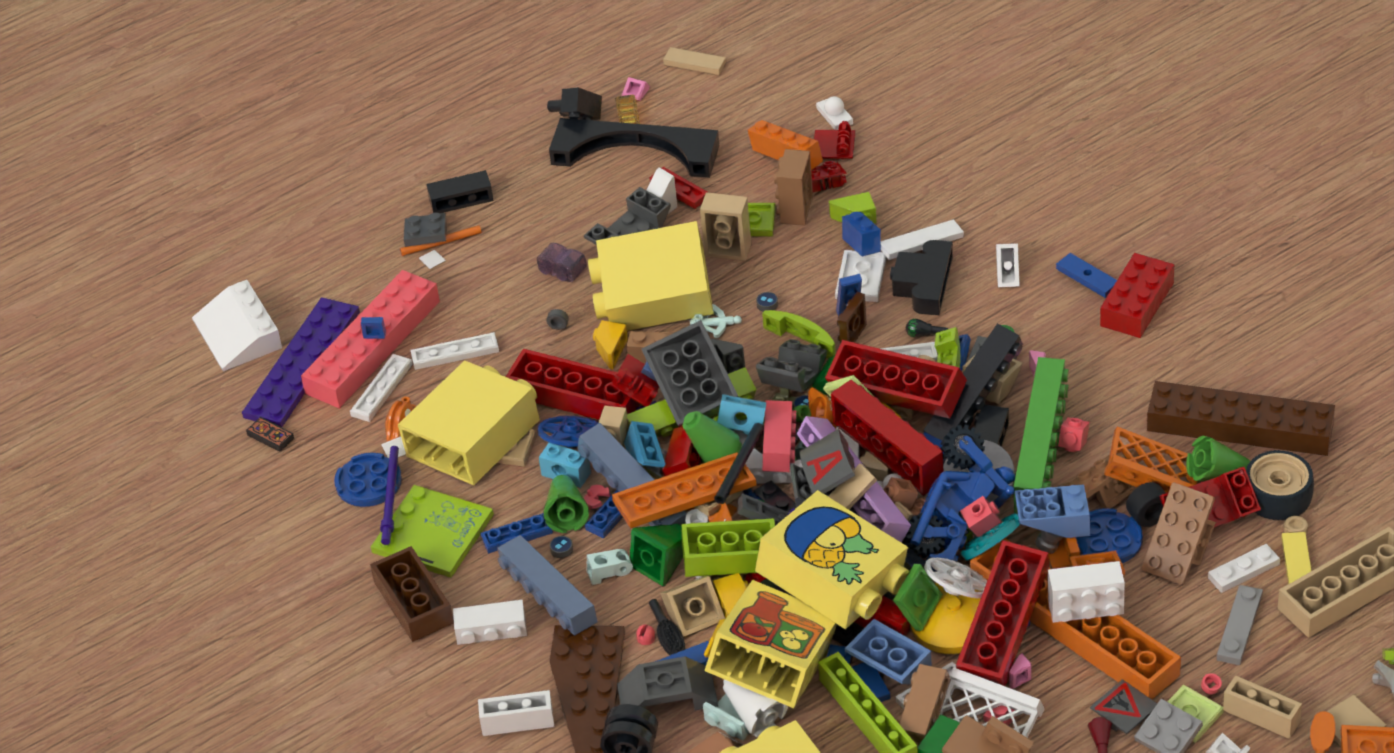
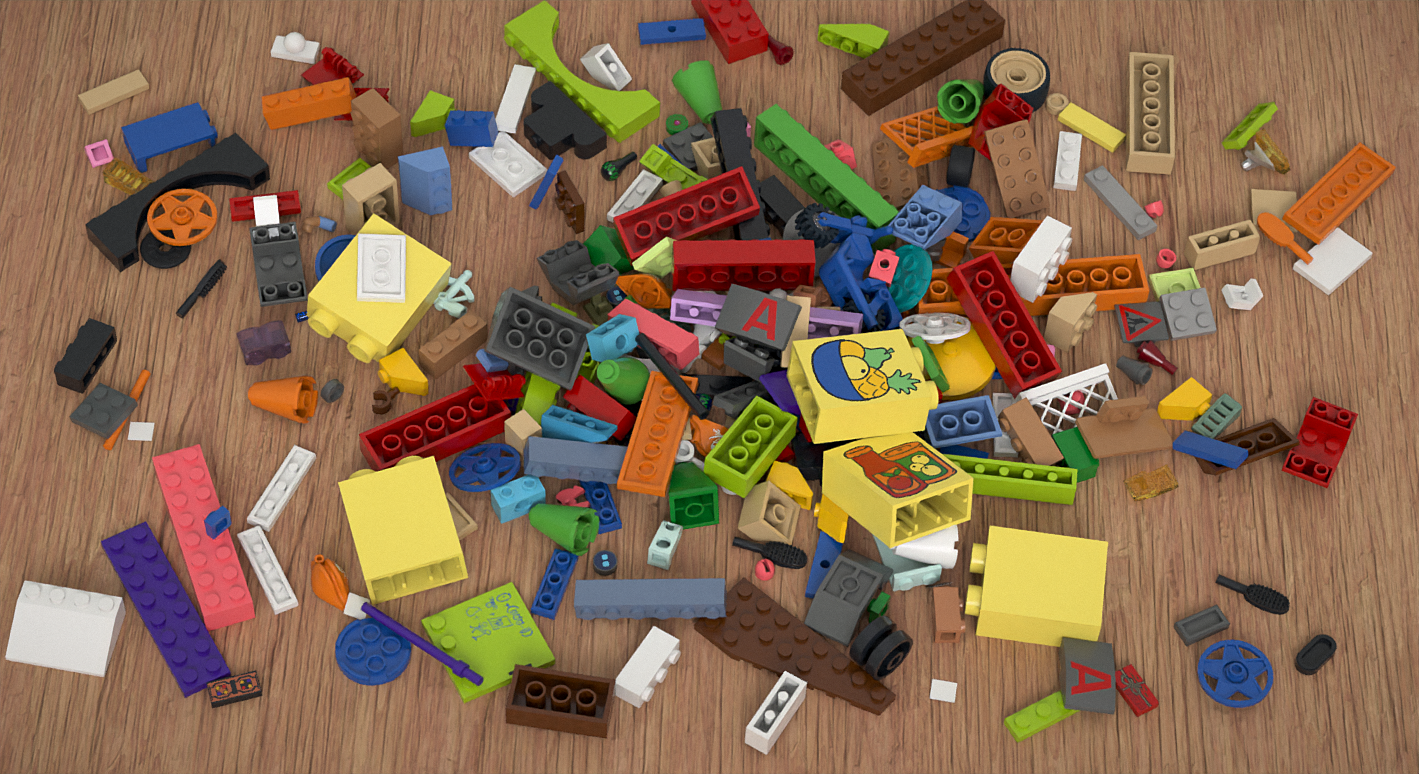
camera: 60 degrees left, 10 degrees up
(525, 303) = (286, 397): none -> orange cone
(577, 104) = (87, 201): black brick -> none
(578, 204) = (203, 287): none -> black piece
(579, 168) = (160, 259): none -> black wheel
(582, 352) = (386, 396): none -> reddish brown piece
(621, 157) = (182, 217): none -> orange wheel
(658, 257) = (381, 268): none -> white tile
(672, 717) = (878, 606): none -> green plate
(683, 103) = (167, 133): none -> blue panel
(691, 217) = (318, 221): none -> arm
(767, 301) = (469, 241): tile -> none
(781, 239) = (426, 181): none -> medium blue slope
(781, 322) = (532, 239): lime slope -> none
(972, 294) = (615, 111): none -> lime arch
(1044, 321) = (699, 89): none -> bright green cone
(1069, 658) = (1069, 320): none -> tan slope
(1072, 733) = (1136, 370): none -> dark grey cone
(1142, 343) = (781, 52): none -> dark red cone
(1207, 370) = (854, 38): none -> lime slope
(1256, 648) = (1154, 209): none -> coral hinge

